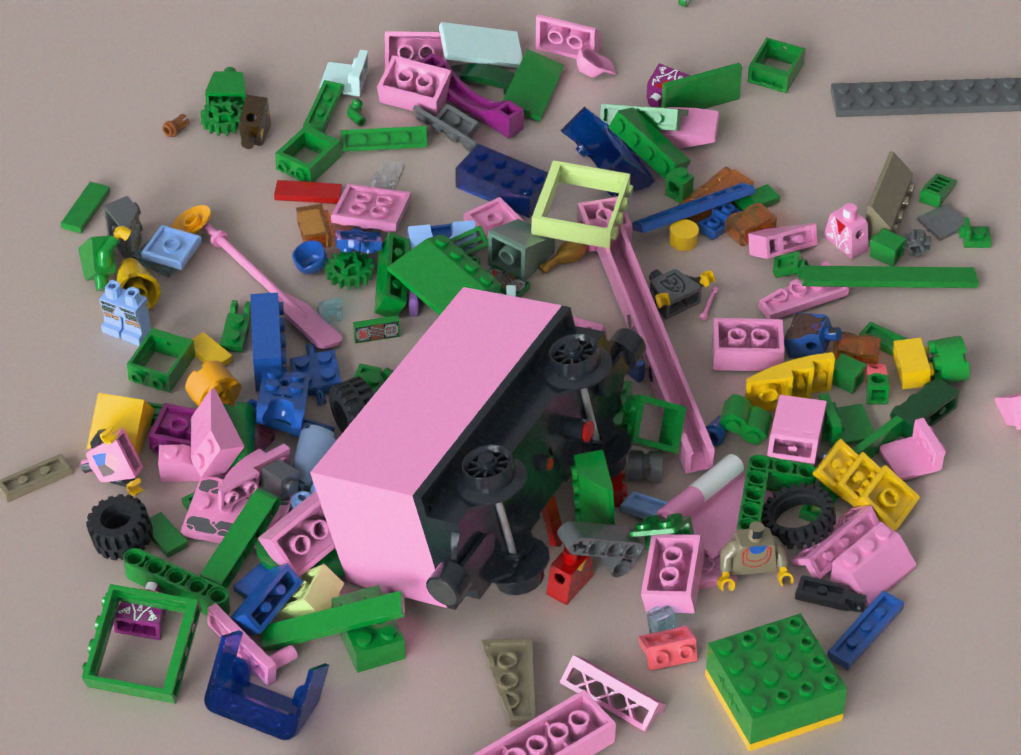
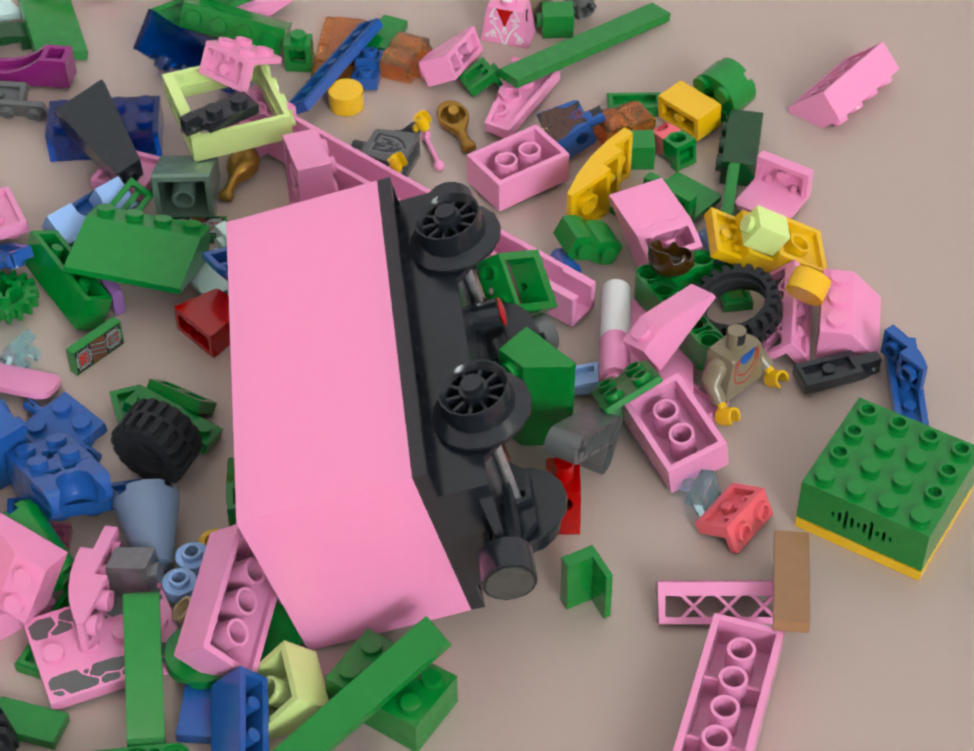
camera: 35 degrees left, 0 degrees up
(488, 181) = (100, 132): none -> black slope
(513, 676) = (608, 648): dark tan wing -> none
(530, 626) = (585, 579): none -> green panel
(562, 208) = (219, 114): none -> black hinge
(592, 283) = (308, 166): none -> bright pink brick
(601, 169) = (234, 60): none -> bright pink bracket
(650, 698) = (791, 581): none -> medium nougat tile
(724, 502) = (665, 326): none -> bright pink slope
(742, 287) = (455, 119): none -> pearl gold piece
(774, 460) = (669, 261): none -> dark brown hair
(851, 526) = (808, 285): none -> yellow piece
(860, 473) = (764, 230): none -> yellowish green brick
(871, 614) = (910, 362): none -> blue slope

